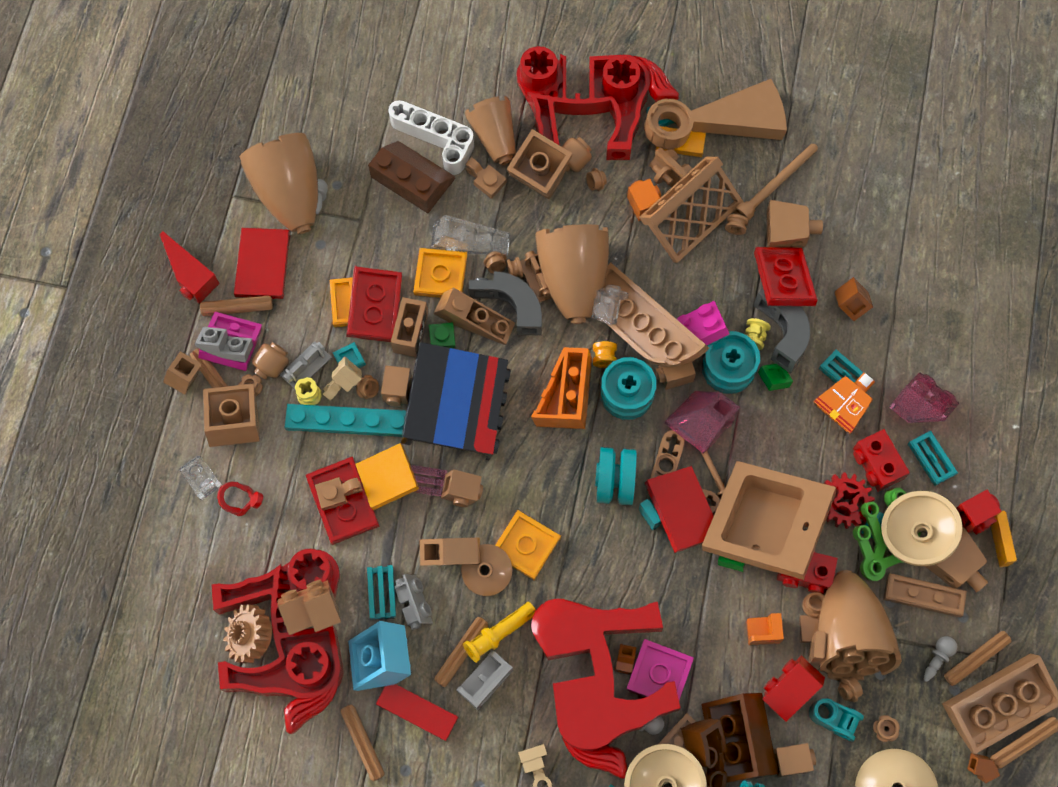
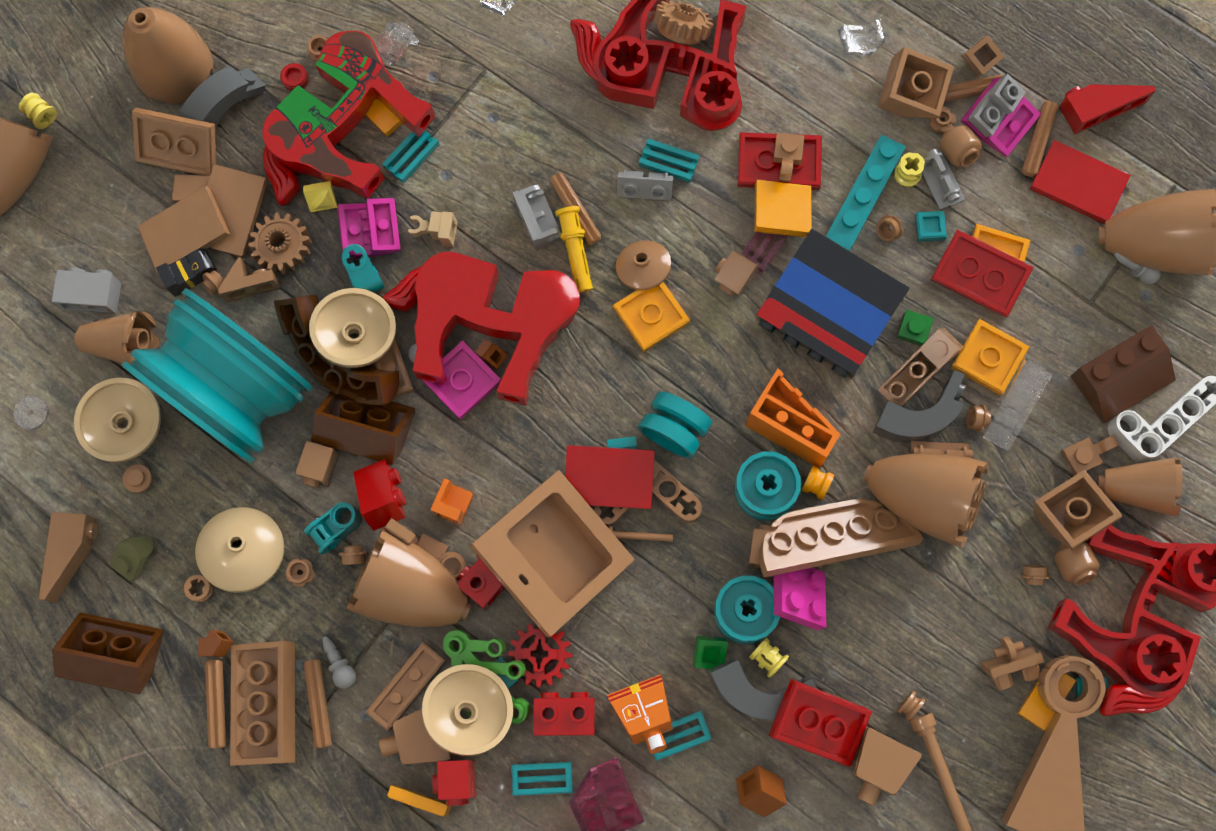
camera: 120 degrees right, 5 degrees up
(255, 498) = (813, 76): red piece -> none
(309, 608) = (674, 74): medium nougat brick -> none
(344, 376) = (909, 207): tan piece -> none
(362, 742) = (535, 88): medium nougat axle -> none
(379, 656) = (604, 130): medium azure slope -> none
(396, 385) = (877, 251): medium nougat brick -> none
(409, 327) = (937, 293): medium nougat brick -> none
(417, 711) = (540, 147): red tile -> none
(449, 551) = (675, 230): medium nougat slope -> none
(514, 267) = (960, 433): medium nougat bush -> none
(607, 304) = (872, 505): clear bracket -> none
(642, 196) = (987, 616): orange brick -> none
(685, 190) = (974, 658): medium nougat fence -> none
(703, 418) = (697, 547): clear pink slope -> none

